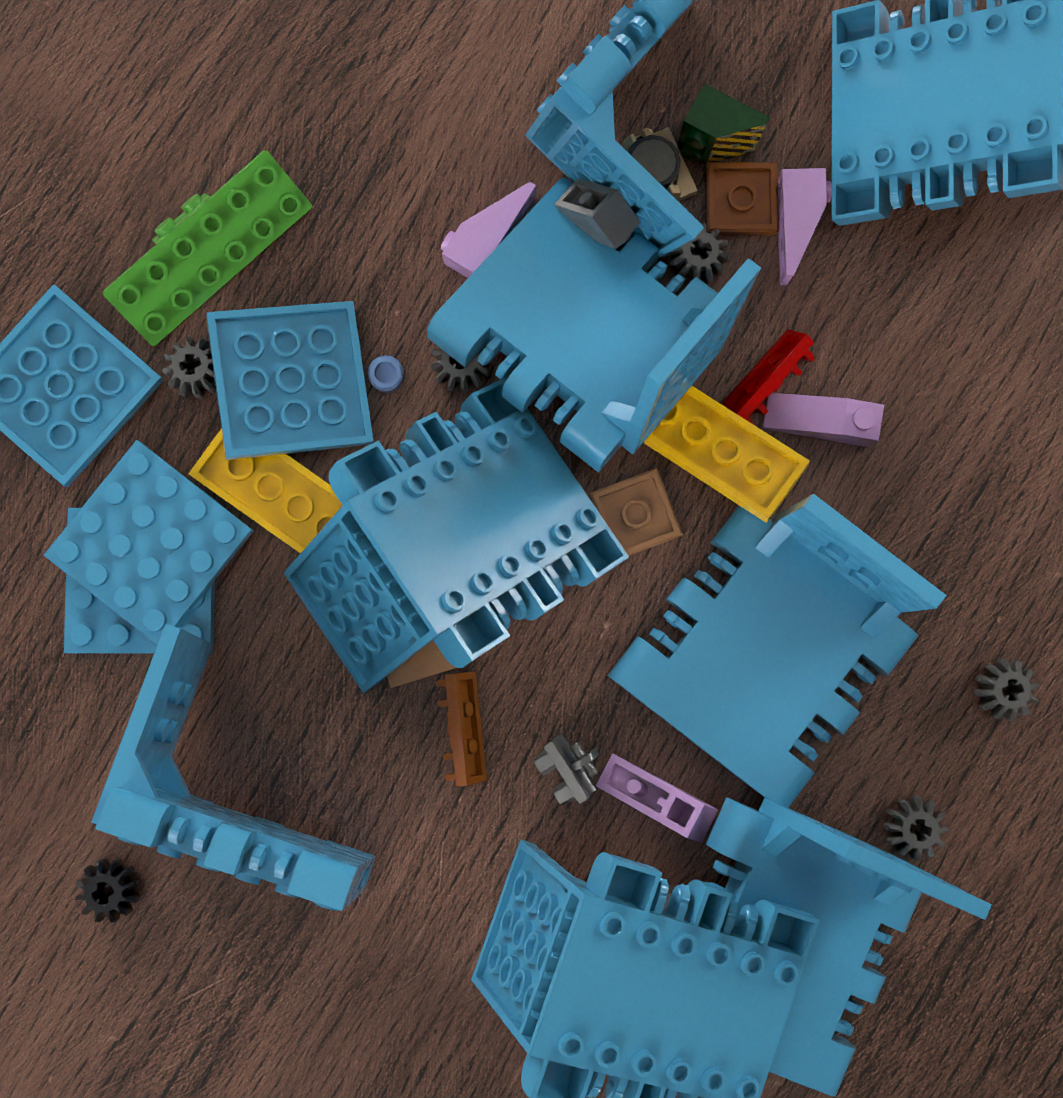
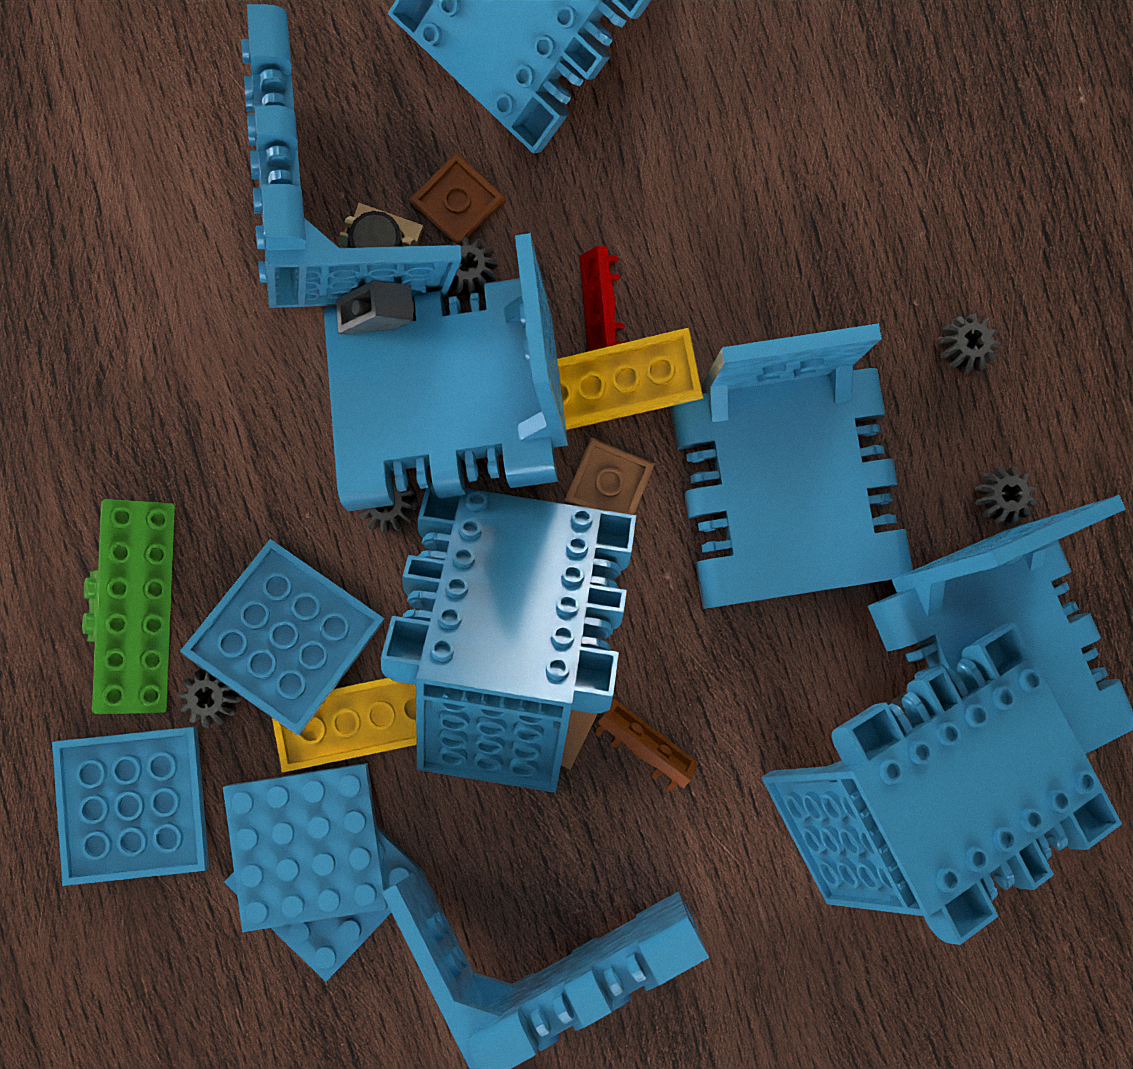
camera: 45 degrees left, 0 degrees up
(386, 374) = (344, 564): medium blue tile -> none
(485, 231) = (311, 399): lavender slope -> none
(573, 765) = (746, 692): dark grey hips -> none
(657, 798) = (821, 654): lavender slope -> none
(719, 128) = (394, 168): dark green slope -> none
(800, 206) = (503, 165): lavender slope -> none
(825, 418) = (666, 289): lavender slope -> none

